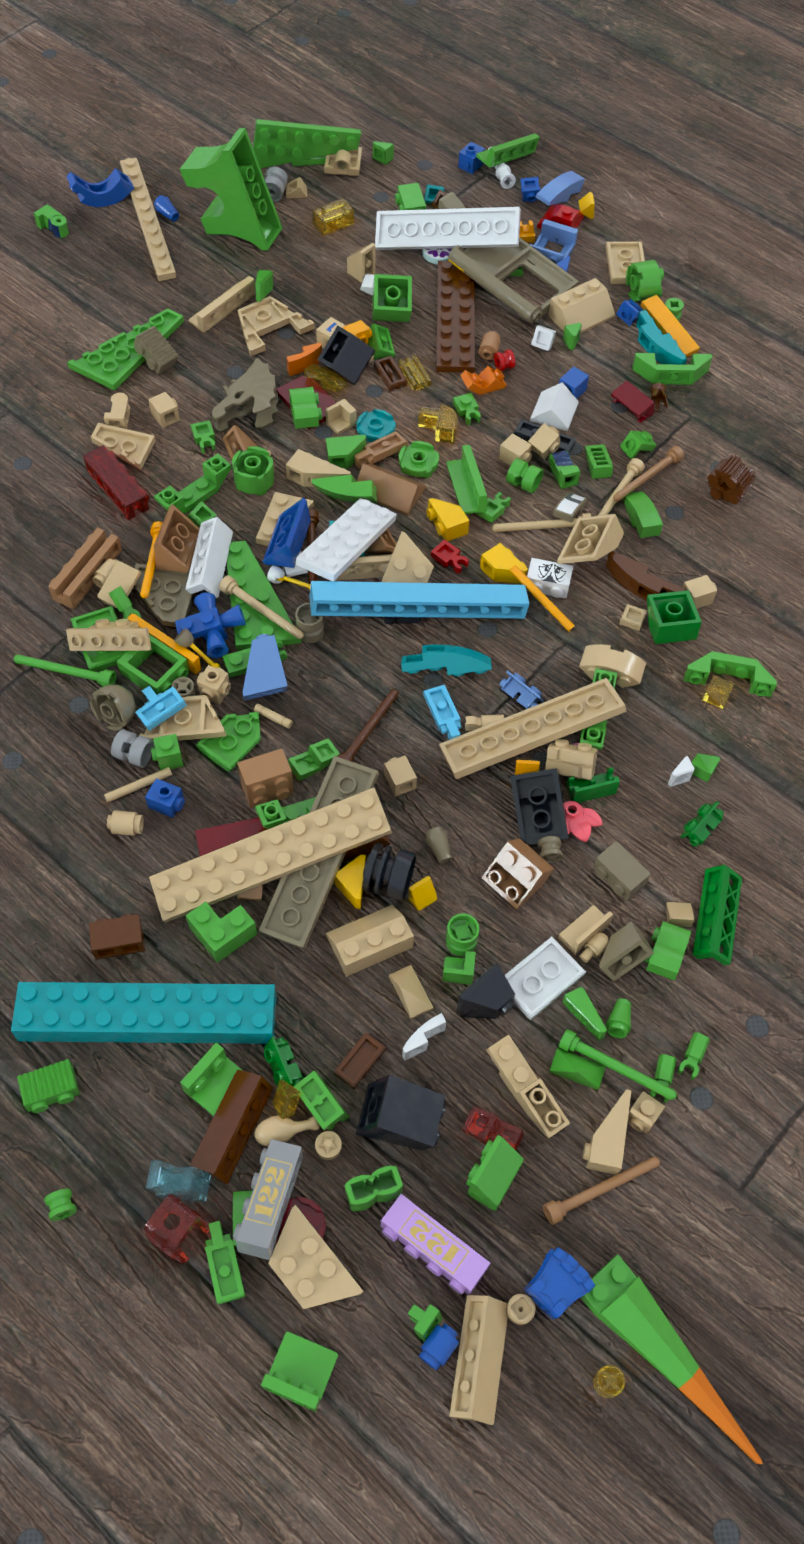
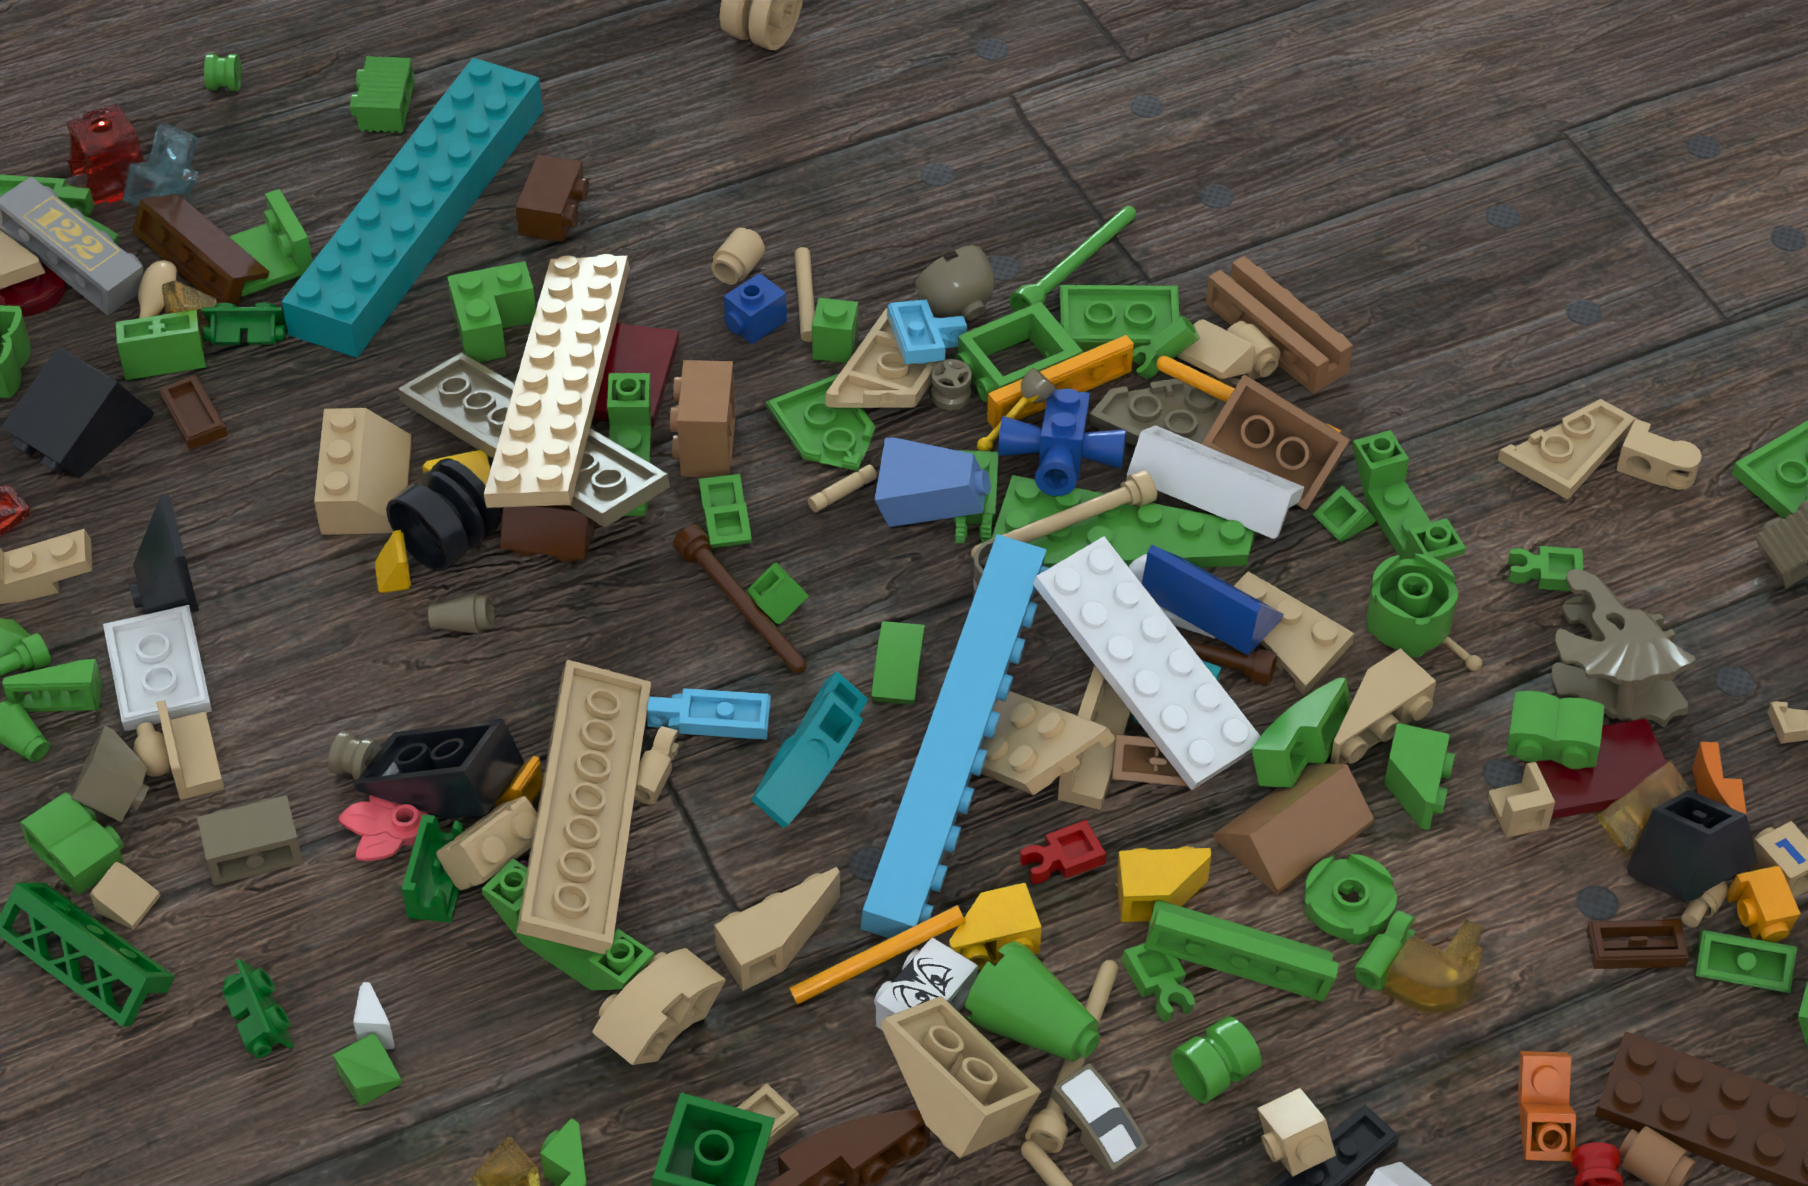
camera: 115 degrees right, 10 degrees down
(109, 637) = (1101, 305): tan bracket -> none
(116, 481) = (1471, 409): clear red brick -> none
(132, 748) = (872, 285): light grey wheel -> none
(164, 409) = (1641, 523): tan brick -> none
(214, 684) = (937, 416): tan brick -> none
(237, 440) = (1502, 621): medium nougat slope -> none
(328, 1145) = (100, 341): tan tile -> none
(356, 716) = (777, 593): none -> bright green slope
(370, 651) = (898, 663): none -> bright green slope
(375, 424) = (1482, 863): teal tile -> none
(380, 449) = (1403, 840): medium nougat hinge -> none
(400, 775) = (620, 605): tan brick -> none
(410, 992) = (251, 496): tan slope -> none
(411, 362) = (1622, 983): clear yellow tile -> none
(418, 1041) = (164, 478): white slope -> none
(440, 441) = (1375, 963): none -> bright green bar
(459, 969) = (236, 566): bright green panel -> none
(462, 934) = (284, 577): bright green wheel -> none
(467, 406) = (1482, 1048): bright green plate -> none
(514, 448) = (1298, 1066): tan brick -> none
(515, 685) = (693, 852): medium blue hinge -> none
(517, 872) = (344, 696): medium nougat slope -> none
(539, 536) = (1031, 1006): none -> bright green cone
(549, 641) = (770, 934): none -> tan slope
(563, 467) = (1214, 1153): bright green leg -> none

